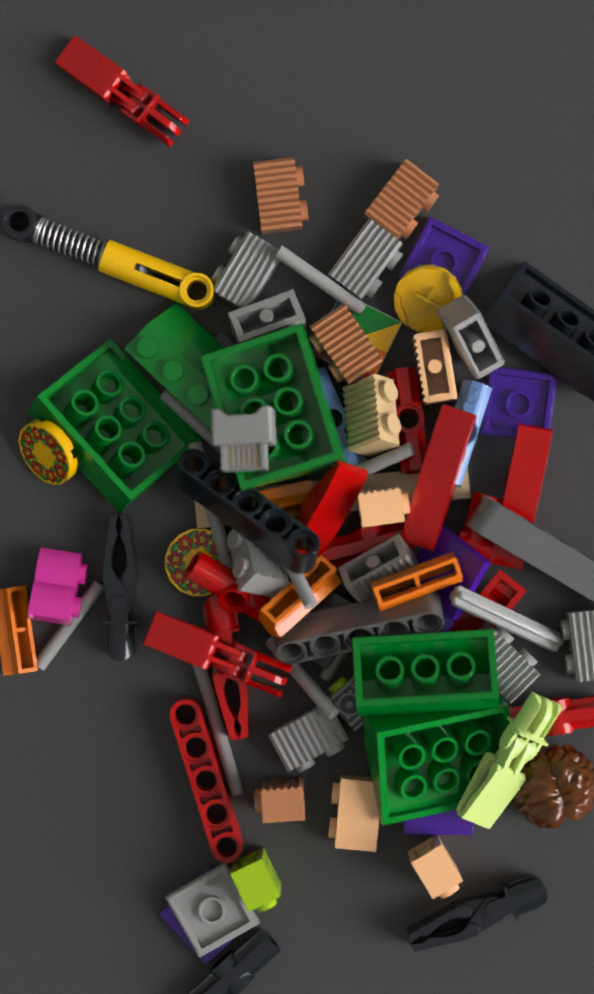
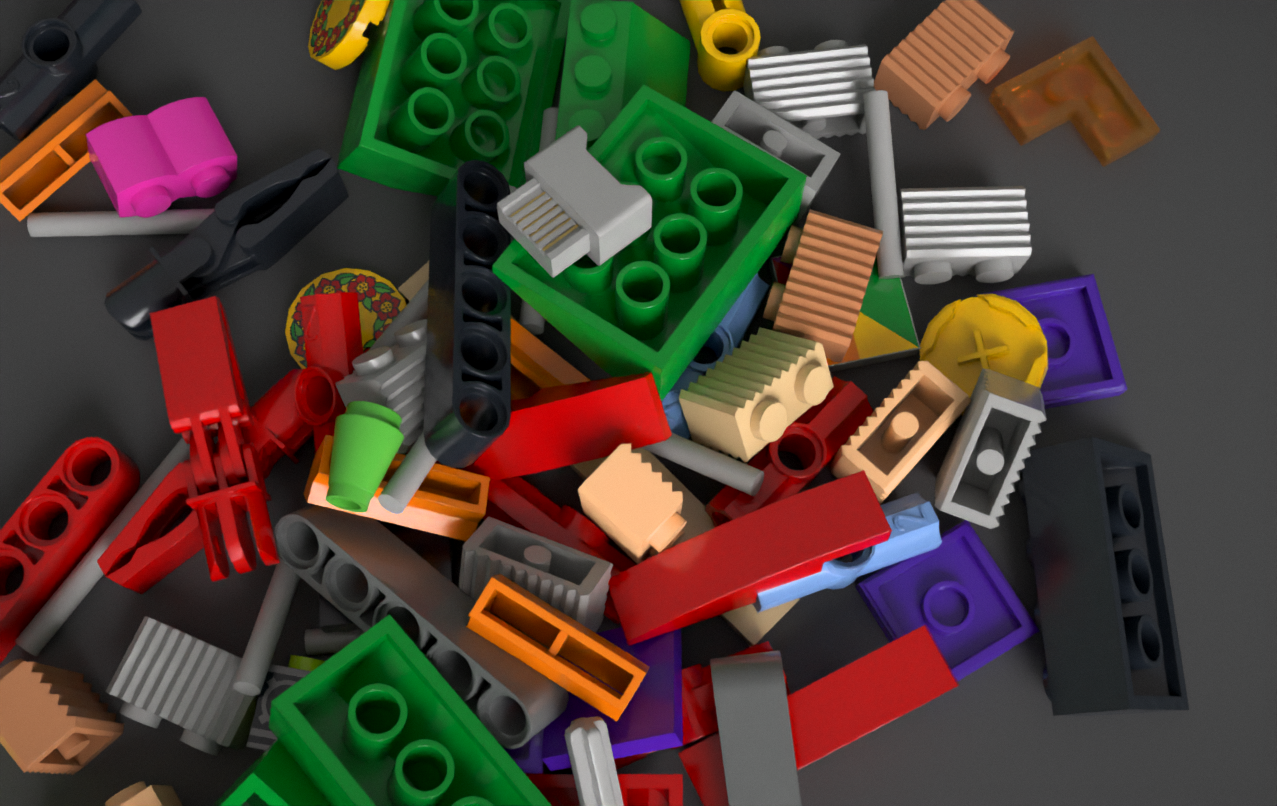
camera: 50 degrees right, 15 degrees down
(282, 602) = (361, 453): none -> bright green cone
(345, 142) = (1078, 88): none -> clear orange plate
(402, 200) = (1087, 218): nougat brick -> none

